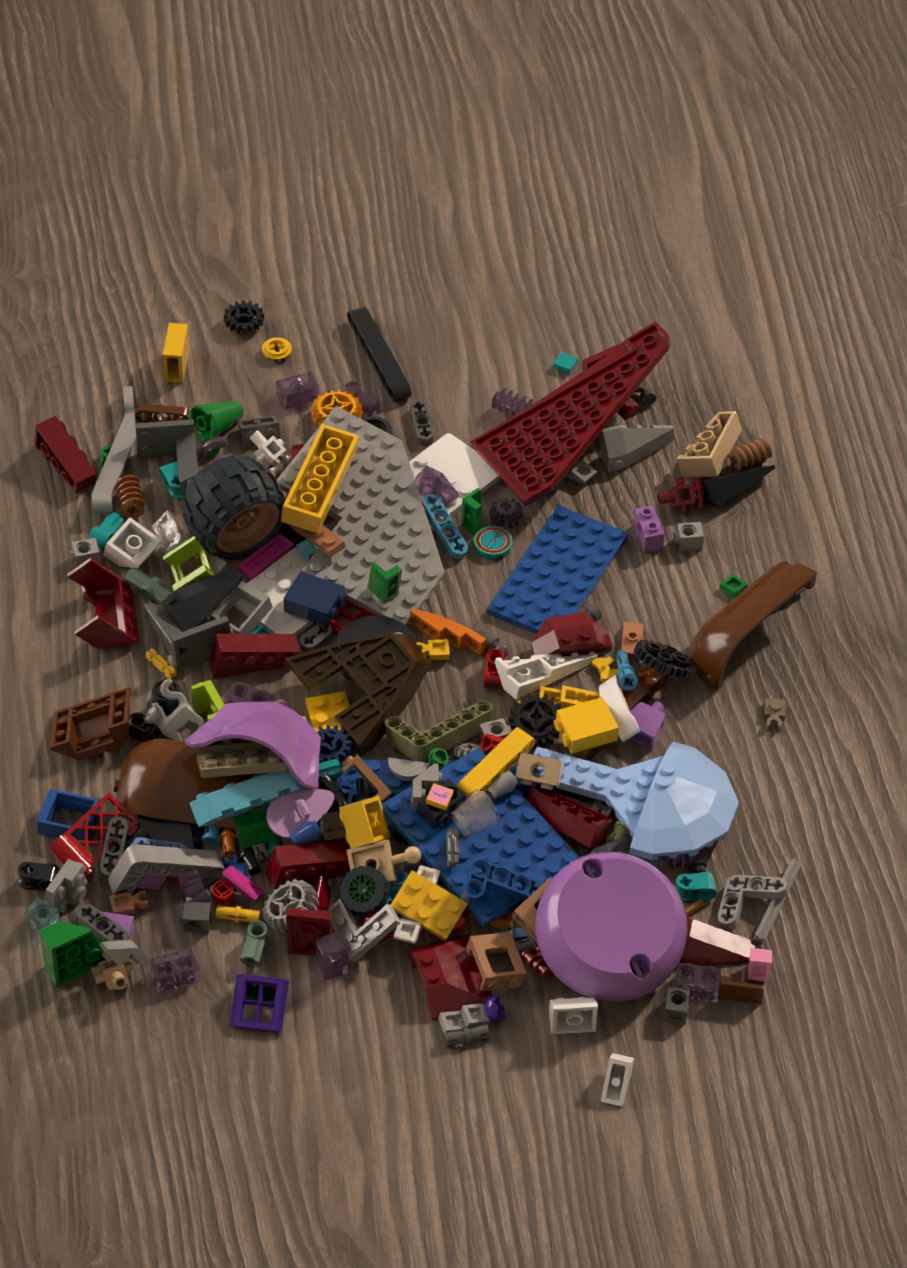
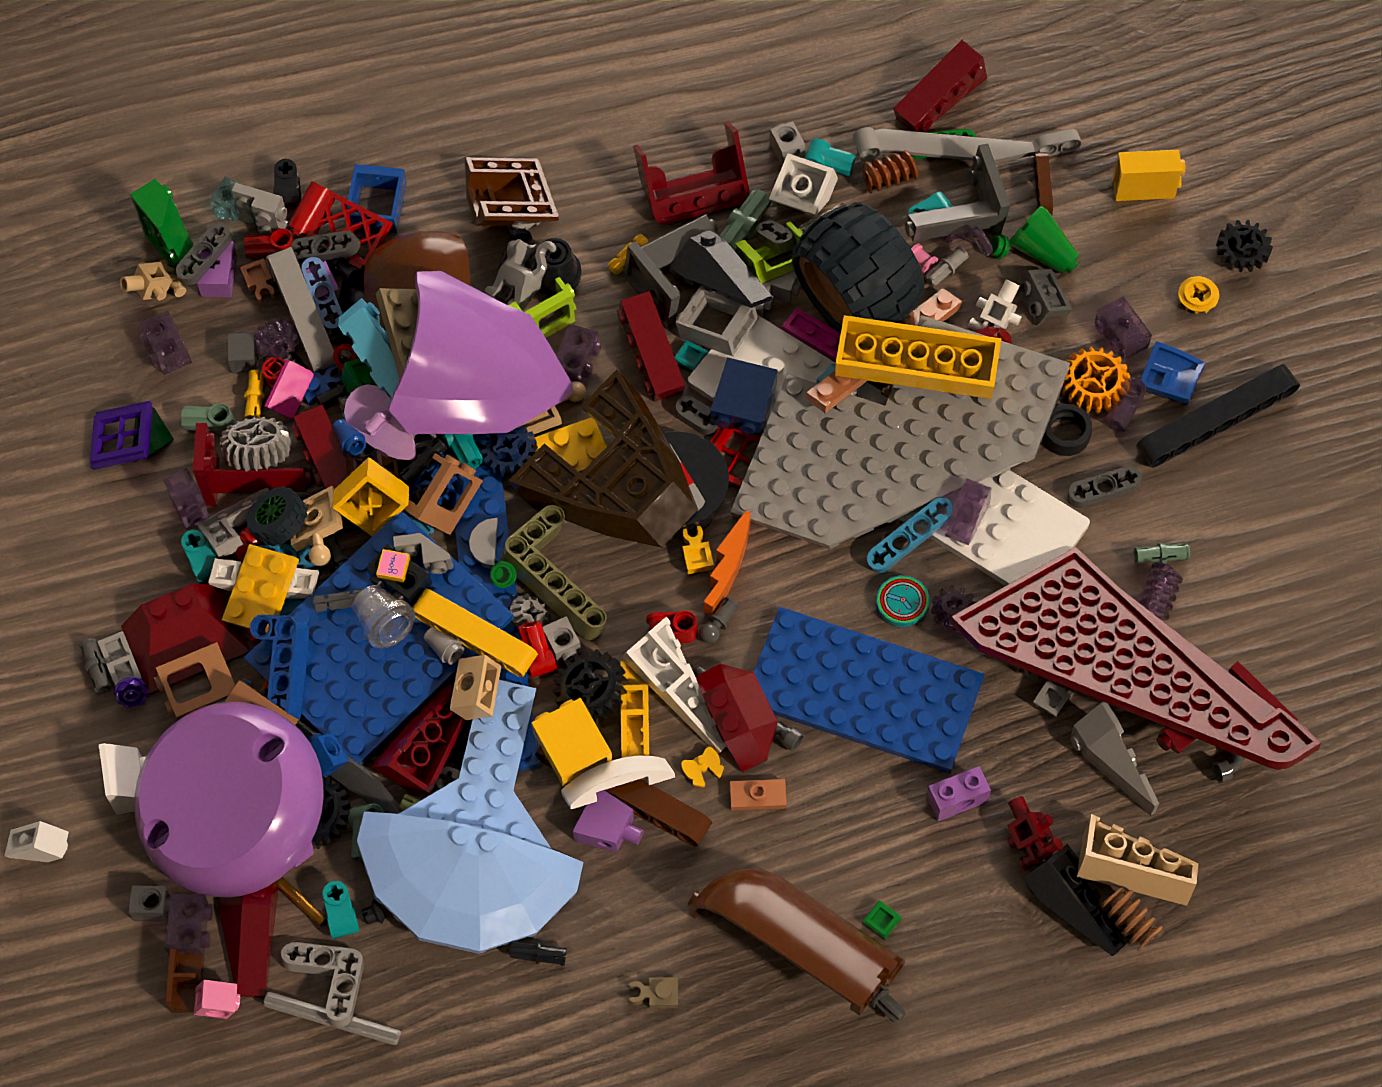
camera: 85 degrees right, 15 degrees up
(96, 891) = (263, 245): none -> red piece
(120, 950) = (163, 272): light grey slope -> none
(172, 569) = (775, 236): none -> dark grey beam
(220, 841) = (339, 359): none -> red cone
(339, 371) = (1172, 373): none -> blue plate
(384, 584) = (765, 467): green panel -> none
(384, 955) = (201, 557): none -> teal piece
(472, 511) = (937, 558): green panel -> none
(481, 400) = (1161, 553): none -> sand green pin
(565, 362) = (1267, 655): teal tile -> none
(625, 672) = (676, 784): dark azure pin -> none
(665, 659) = (709, 832): black gear -> none
(689, 536) = (953, 860): light grey brick -> none
(740, 773) = (538, 953): none -> black axle

